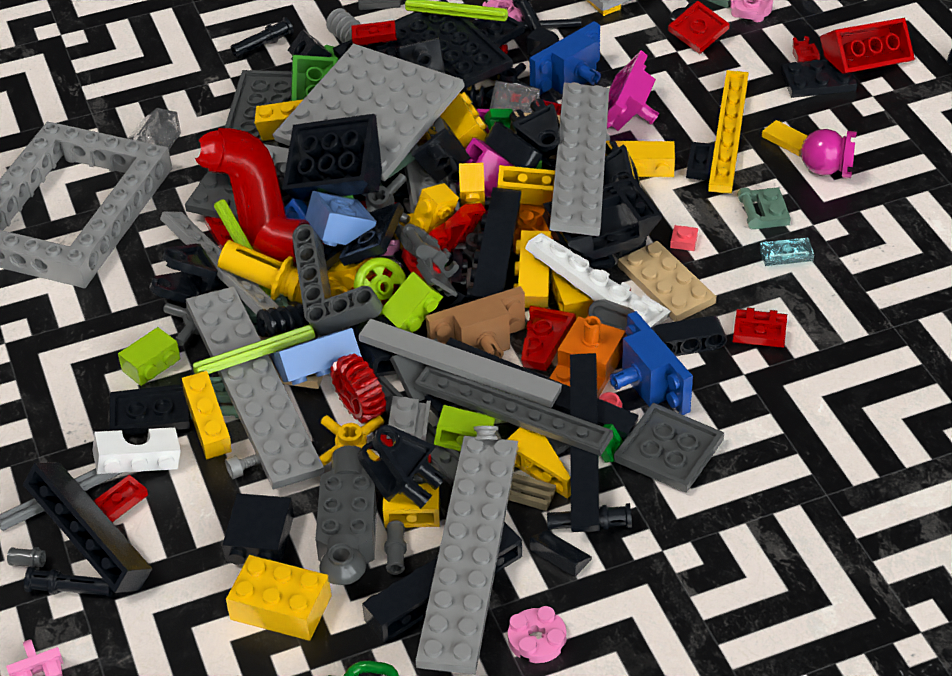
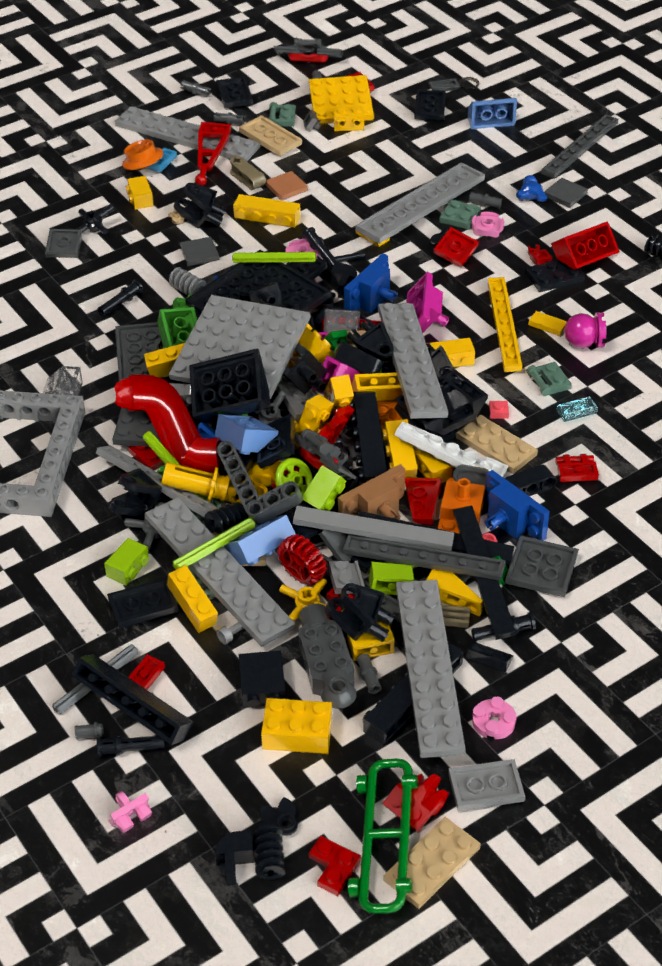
camera: 15 degrees left, 0 degrees up
(116, 455) = (133, 641): white arch -> none
(307, 46) = (161, 300): black brick -> none
(374, 32) = (216, 283): red plate -> none
(486, 433) = (412, 577): light grey bush -> none
(700, 161) = (491, 349): black plate -> none

